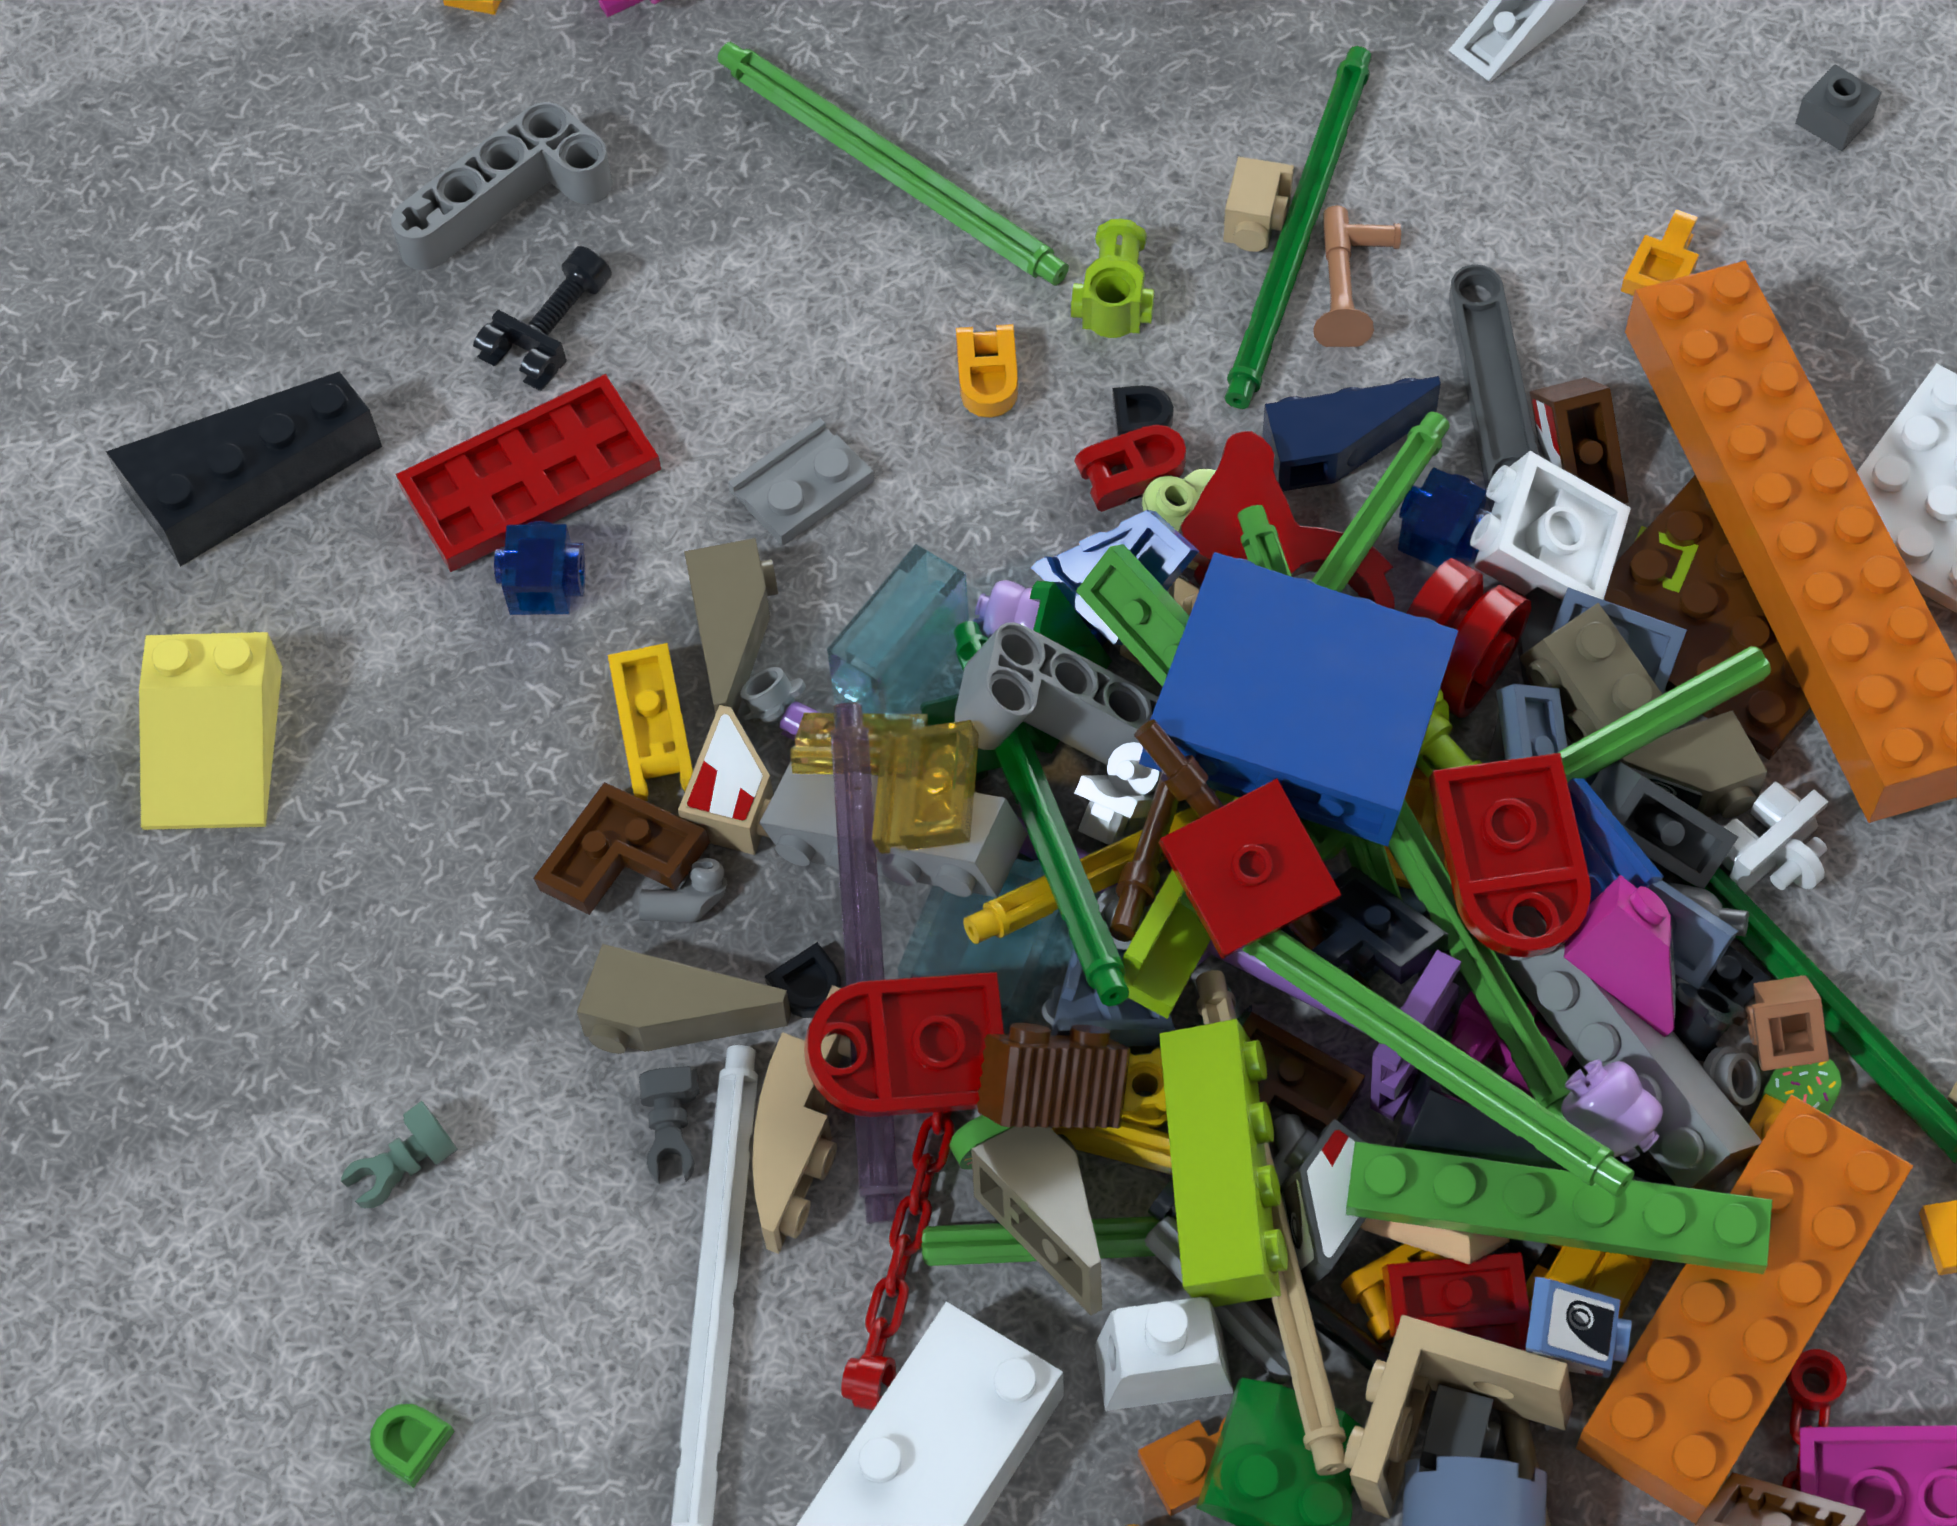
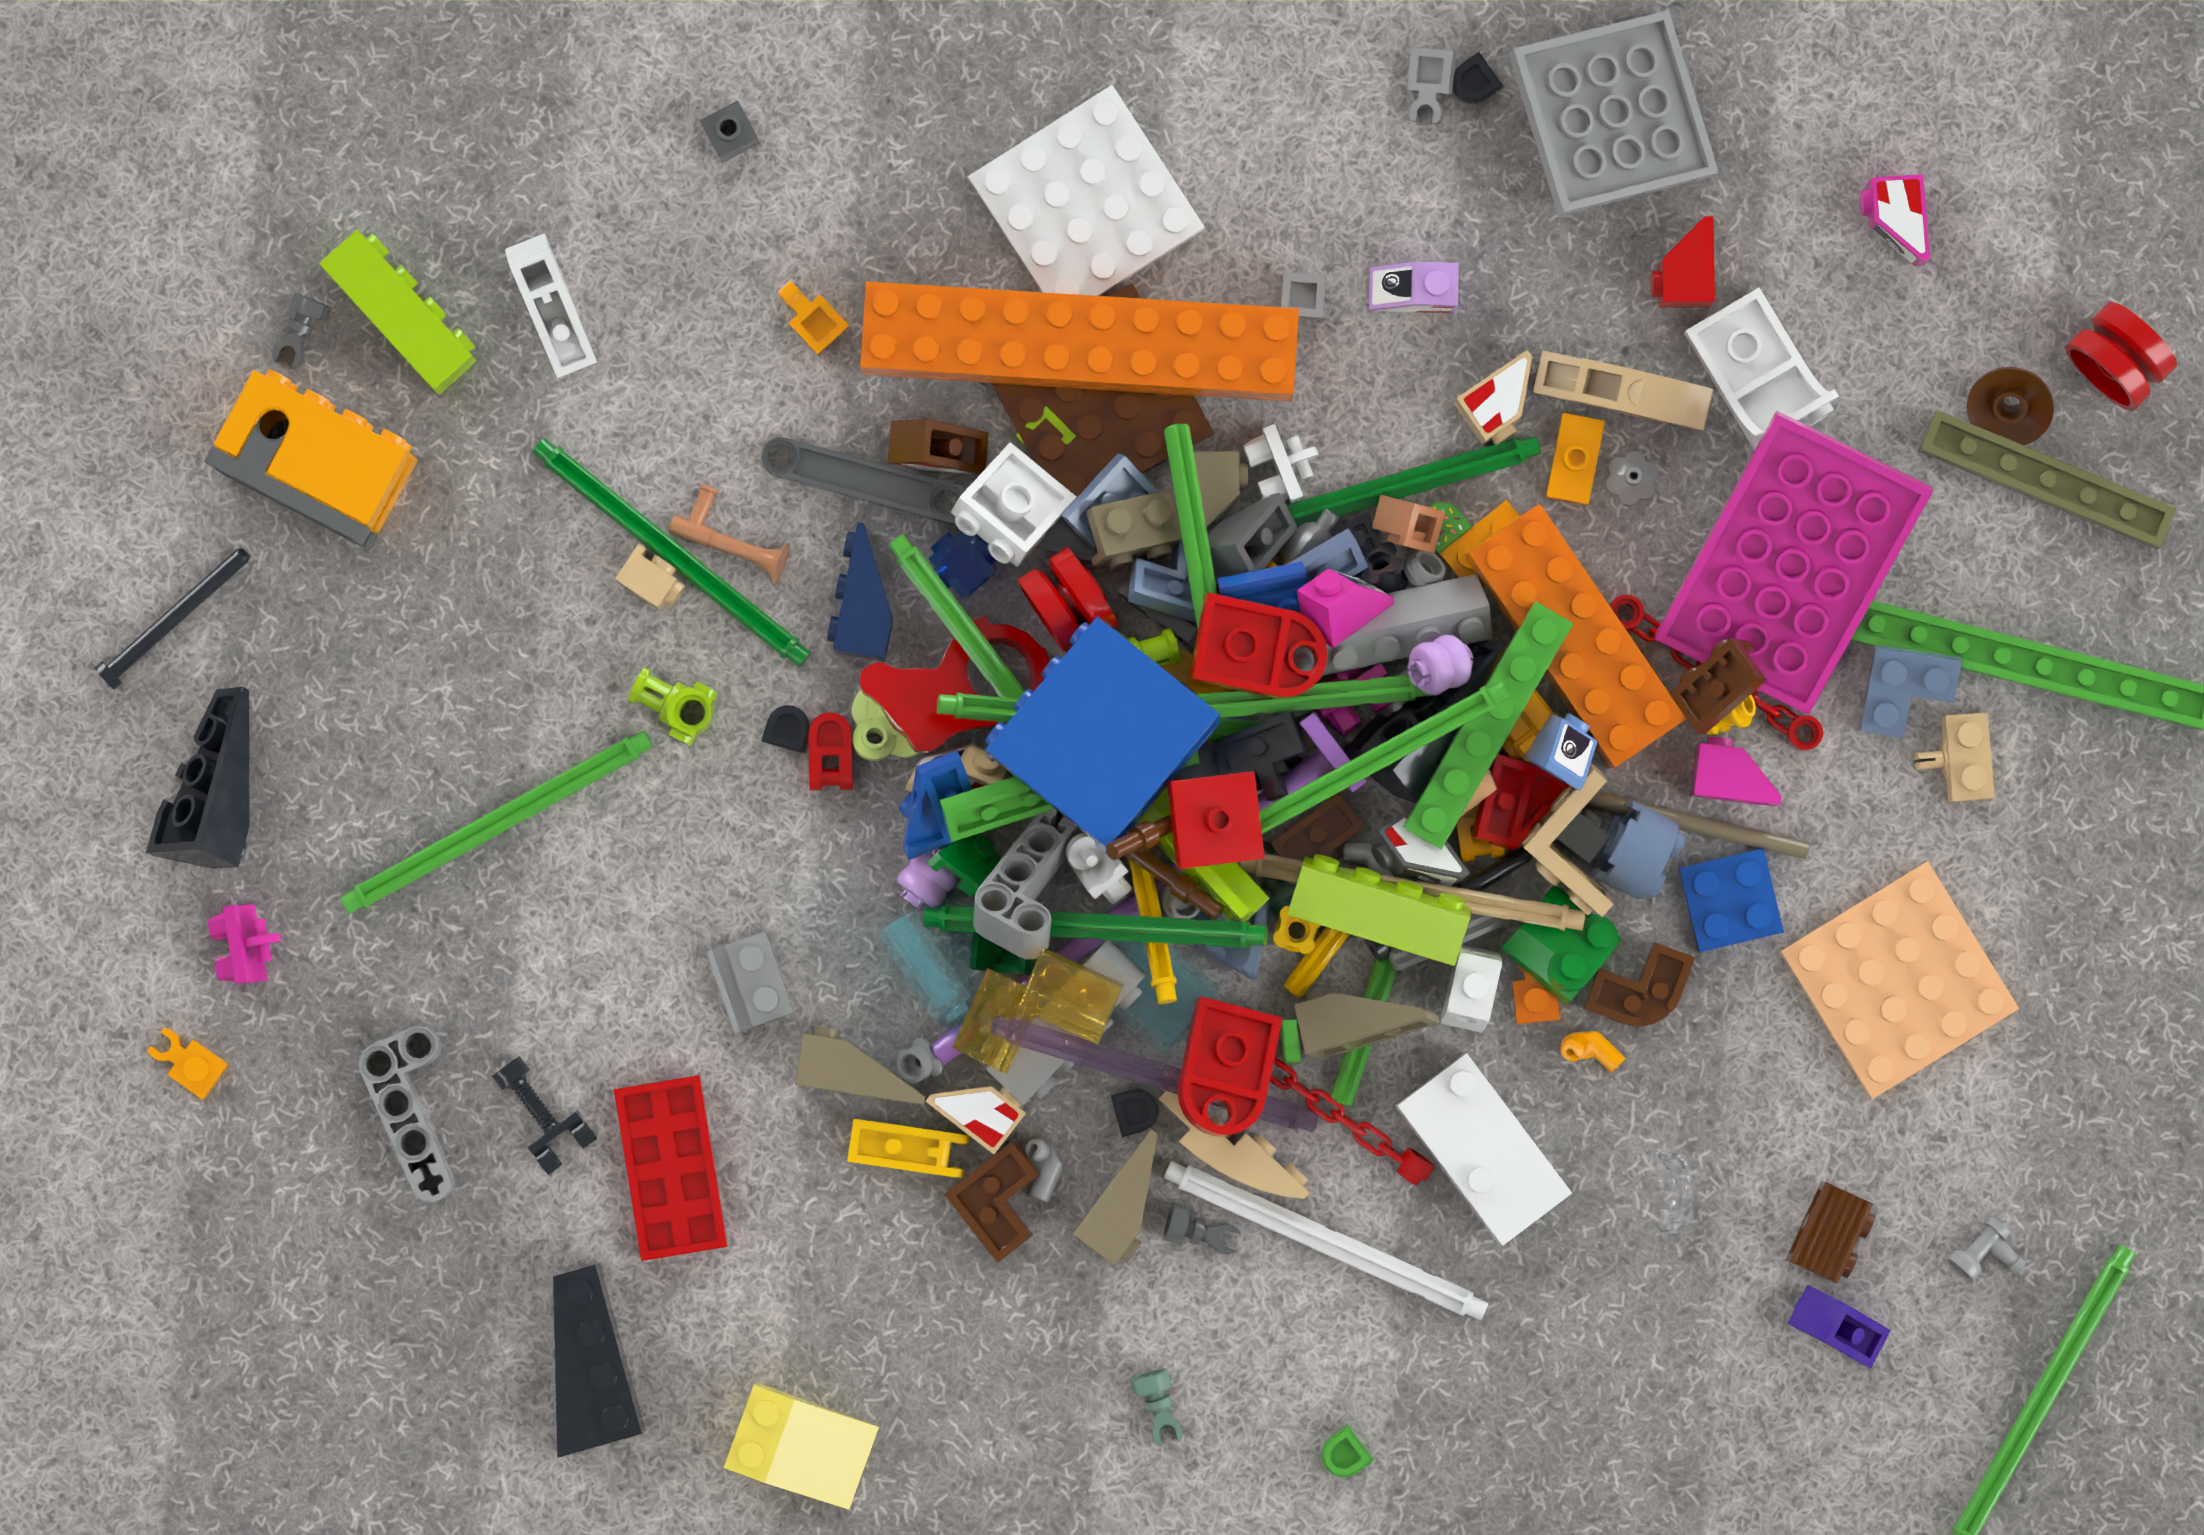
camera: 75 degrees left, 25 degrees up
(540, 569) = (756, 1184): clear blue brick -> none
(987, 382) = (724, 825): light orange plate -> none
(1053, 1078) = (1285, 988): reddish brown brick -> none

